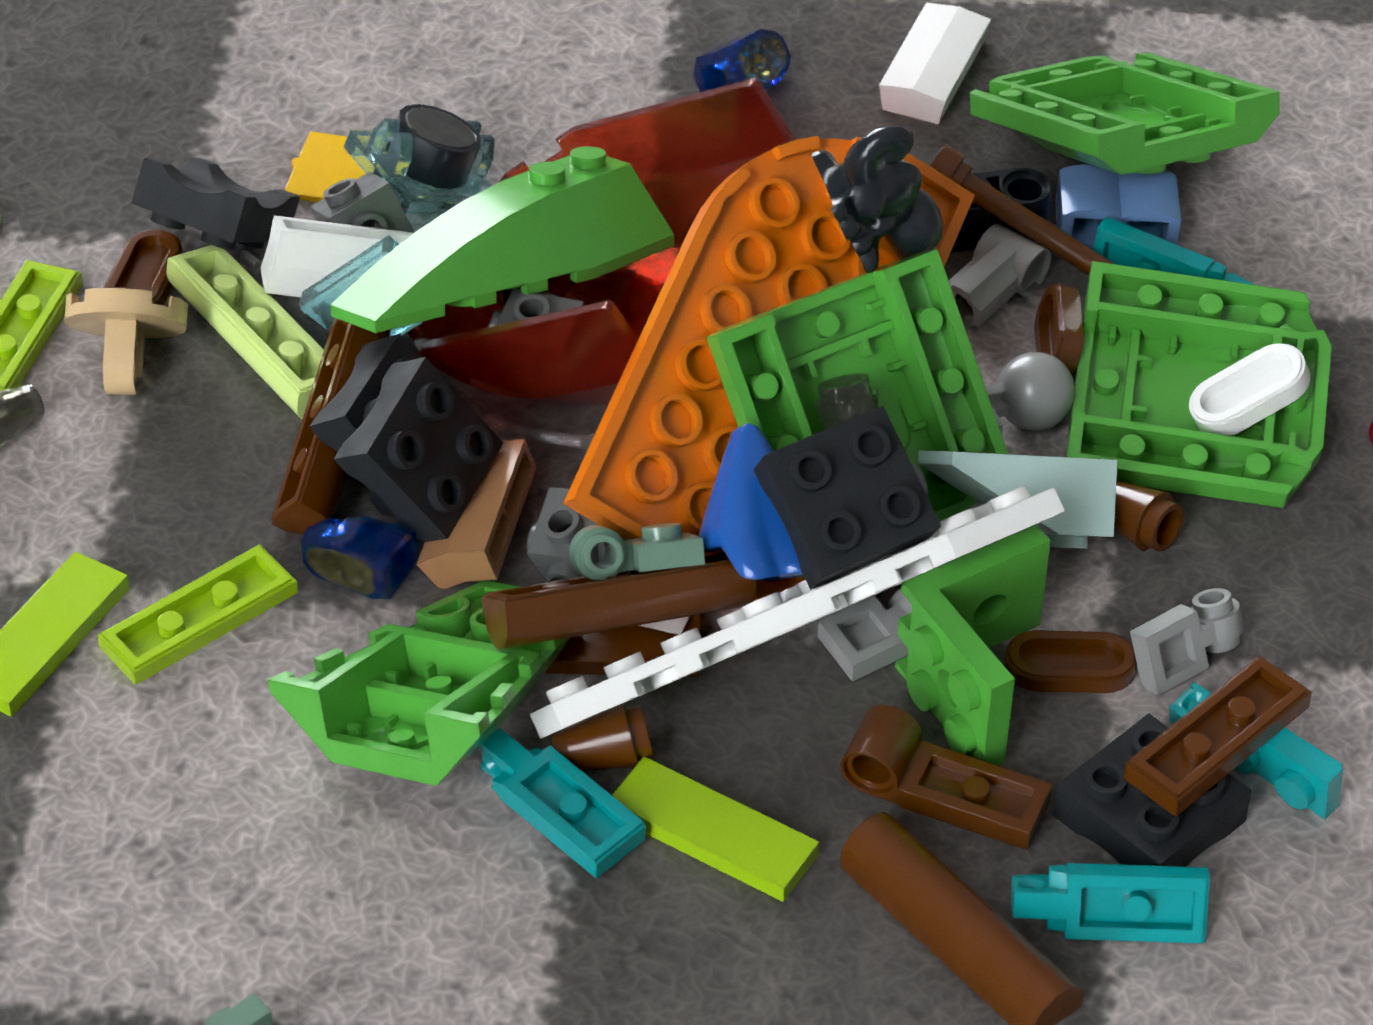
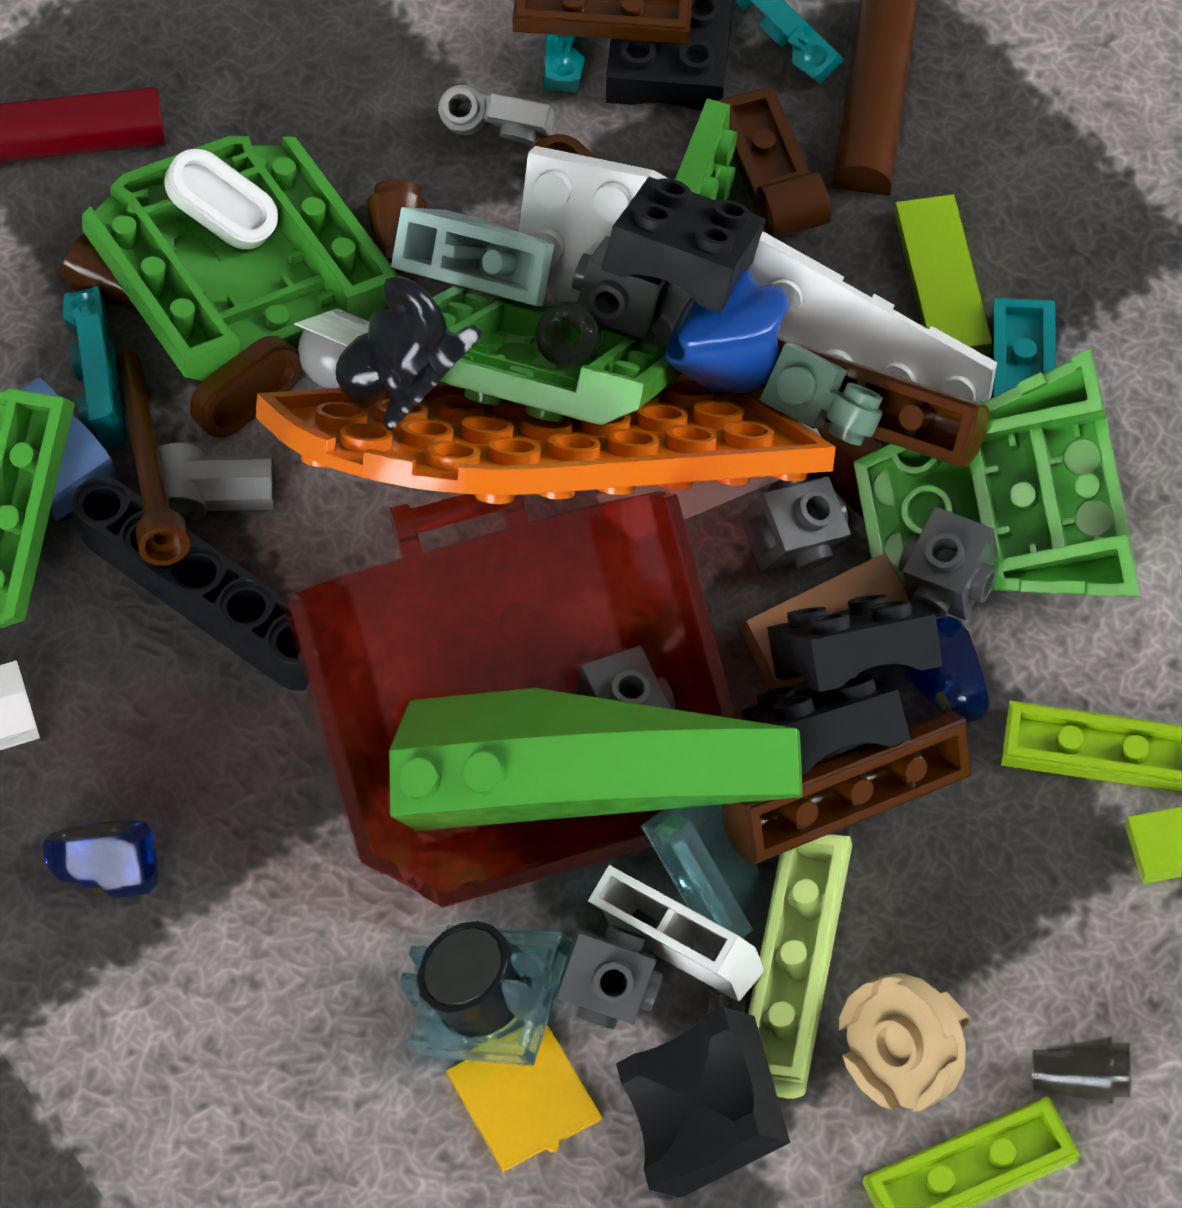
camera: 130 degrees left, 15 degrees up
(144, 263) = (820, 1130): reddish brown tile -> none
(424, 569) = (949, 564): none -> dark grey brick
(1007, 318) = (334, 327): none -> white sticker

